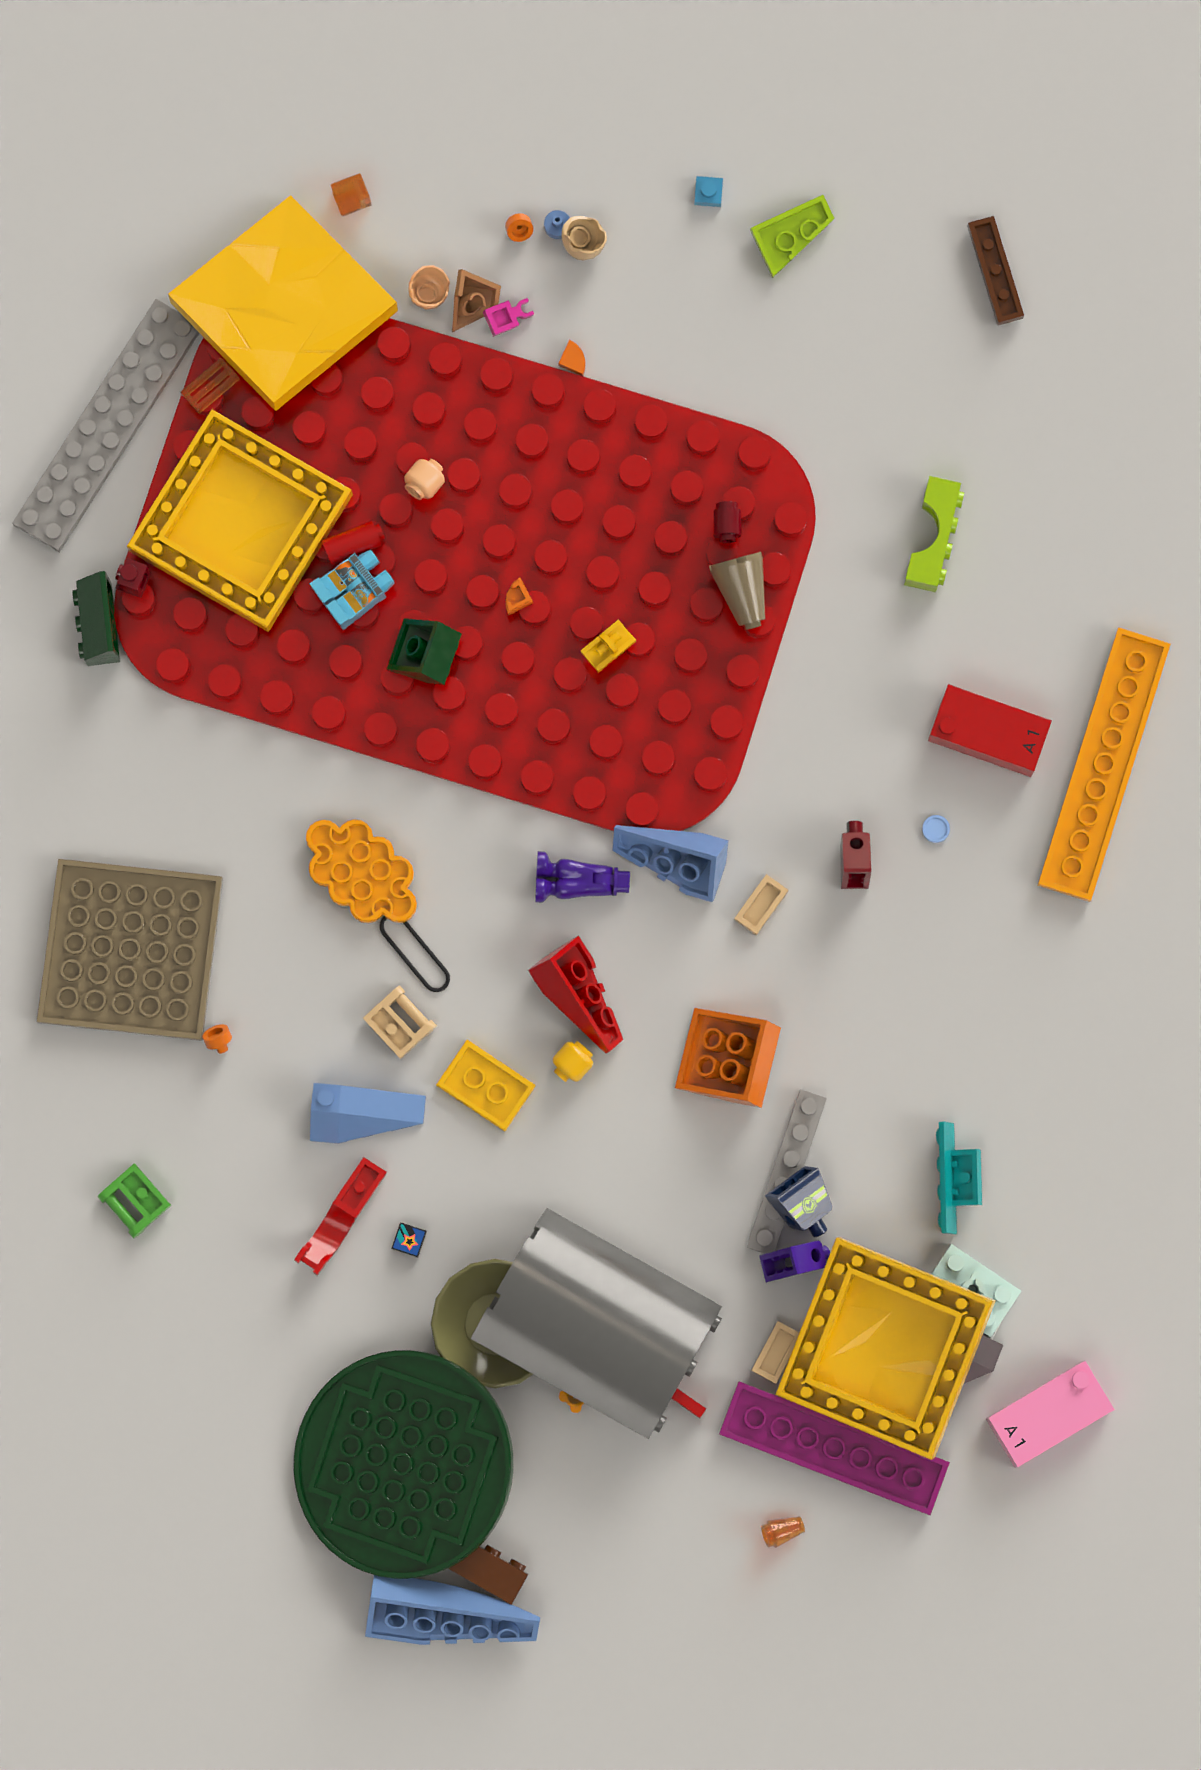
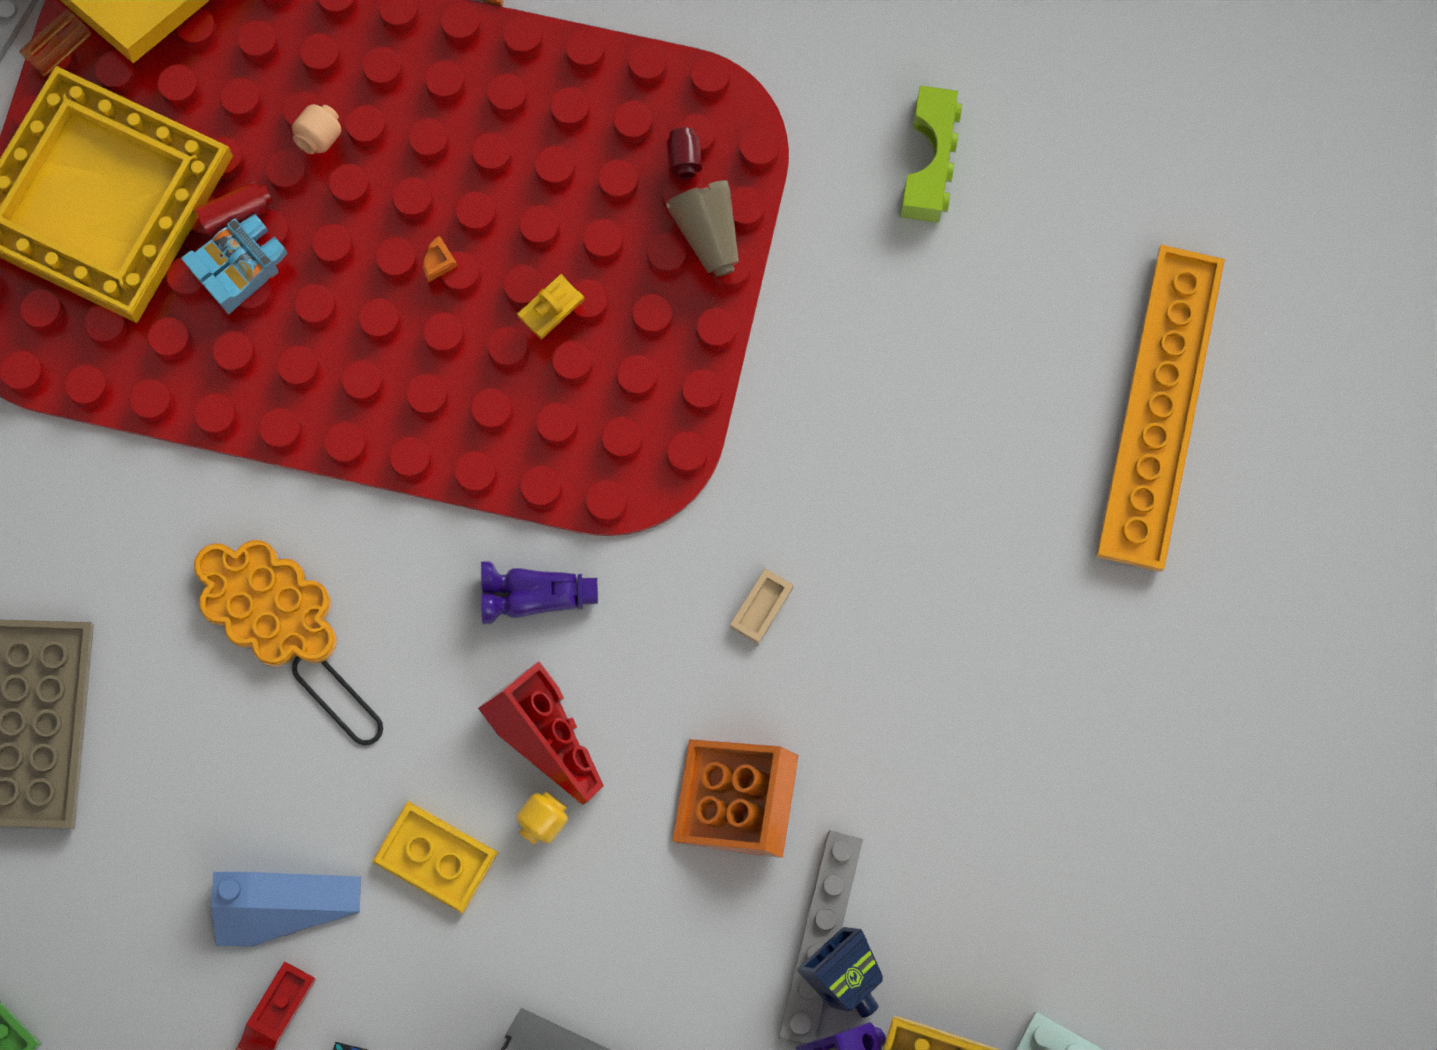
camera: 10 degrees left, 5 degrees down
(217, 1038) = (92, 824): orange tile -> none
(393, 1028) = (313, 795): tan plate -> none
(424, 650) = (328, 329): dark green slope -> none
(684, 858) = (661, 556): medium blue wedge -> none
(855, 857) = (872, 539): dark red torso -> none
(936, 829) = (966, 498): light blue piece -> none
(959, 1177) = (1038, 926): teal bracket -> none
(989, 730) = (1020, 376): red brick -> none

